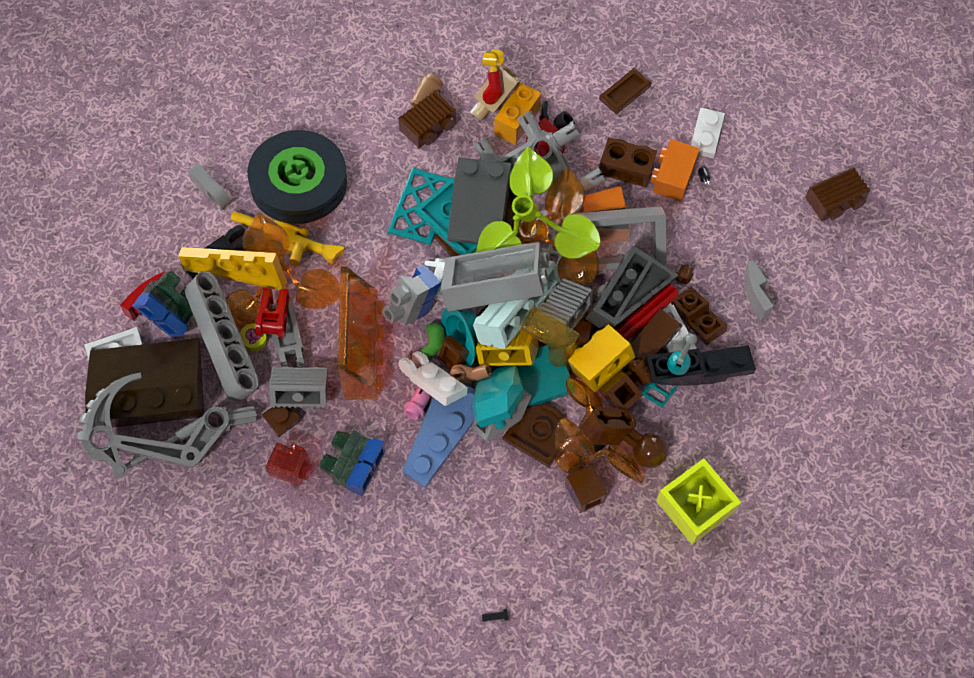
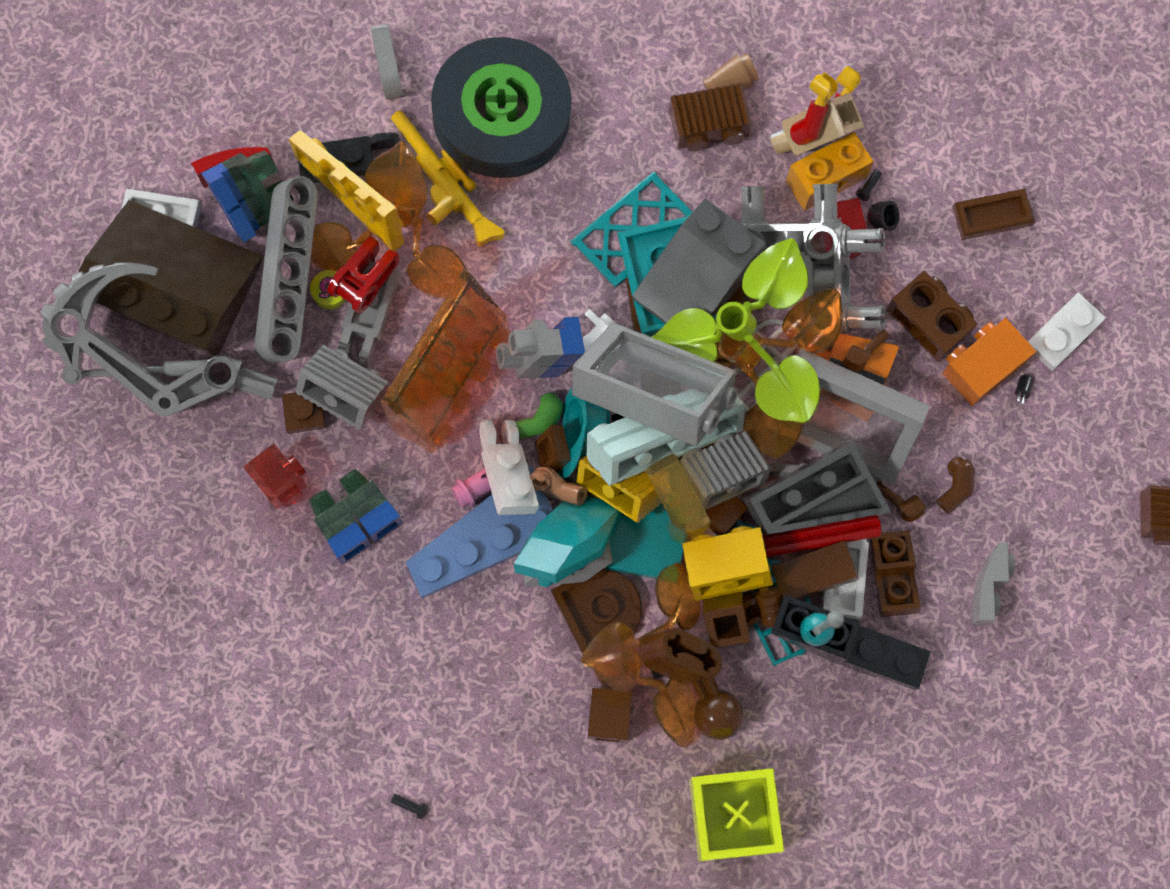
camera: 30 degrees right, 10 degrees up
(601, 203) = (857, 358): none -> reddish brown hand
(705, 247) = (962, 484): none -> reddish brown arm

